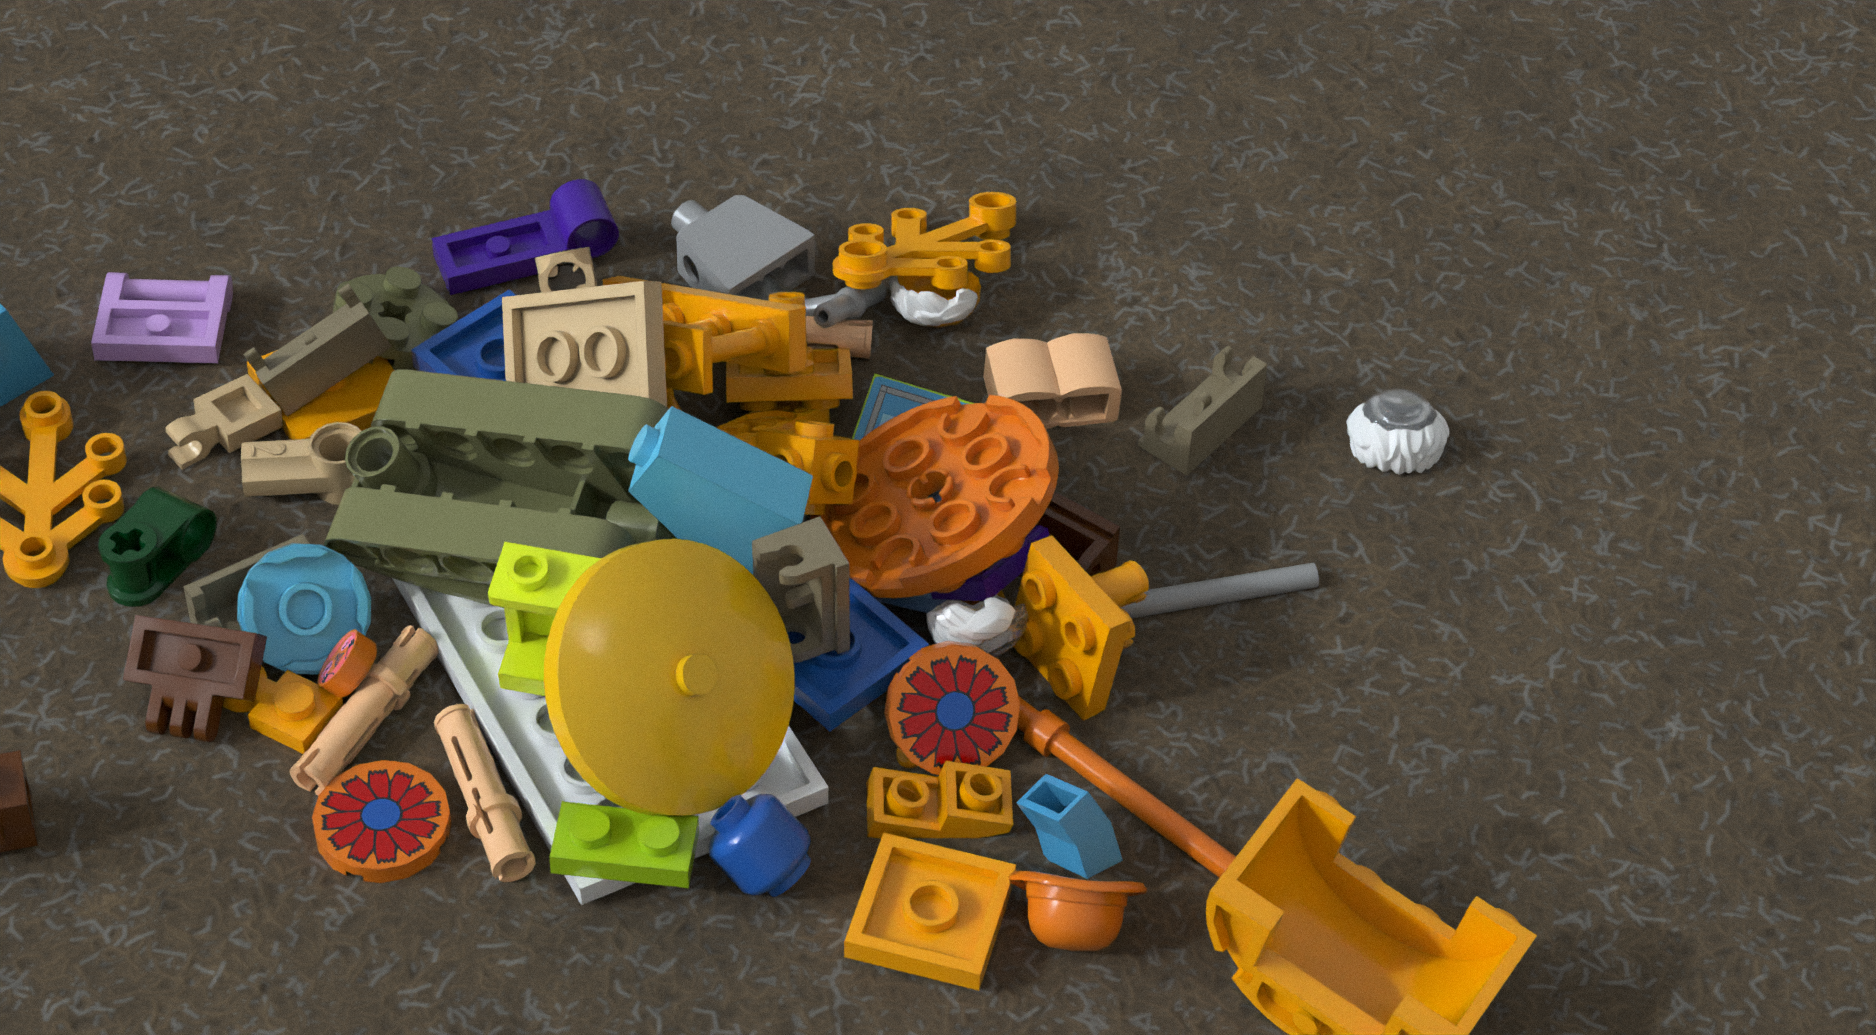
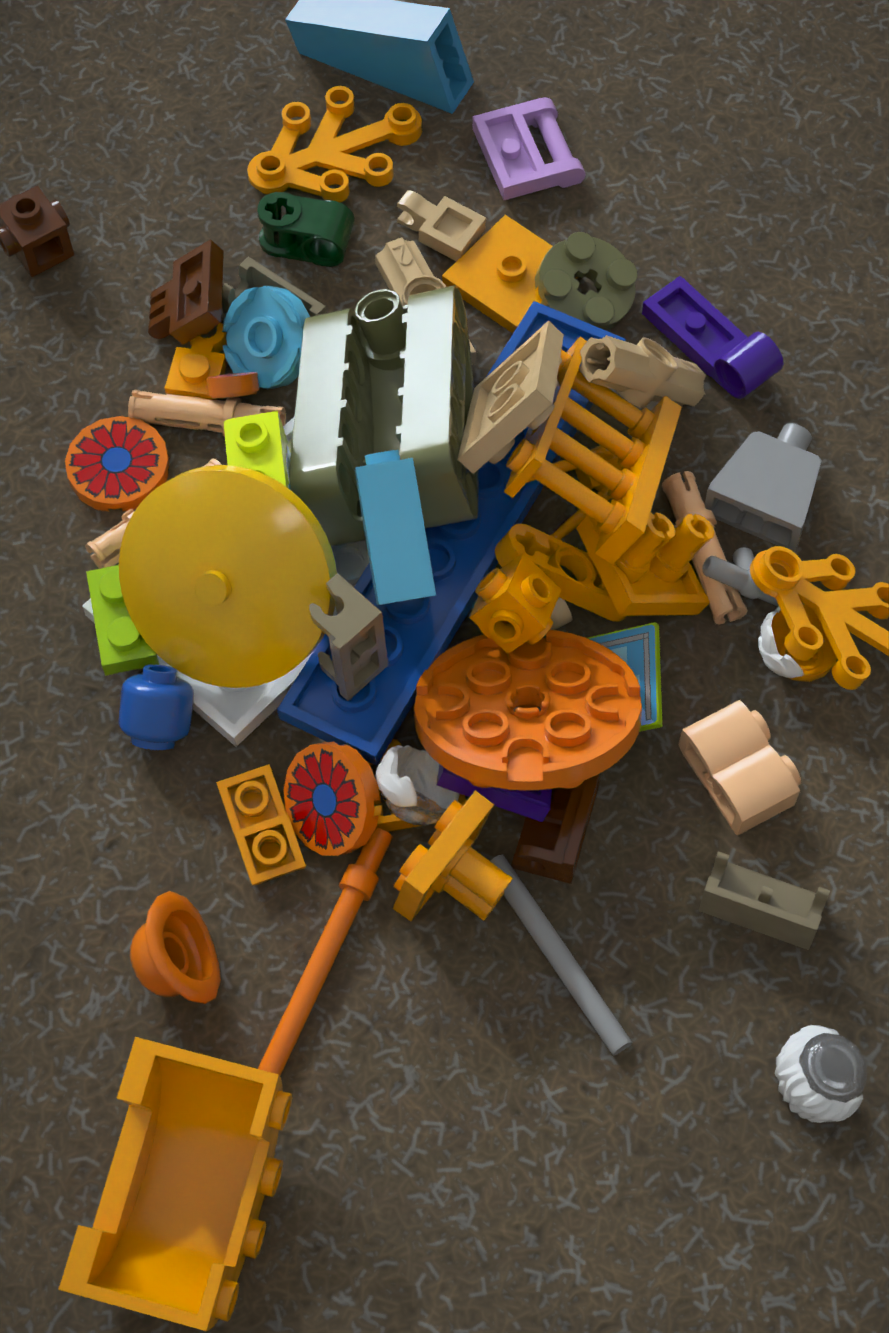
camera: 75 degrees right, 15 degrees up
(320, 355) = (504, 247): dark tan hinge -> none
(930, 911) = (146, 849): light orange plate -> none
(1070, 827) = (243, 924): dark azure piece -> none

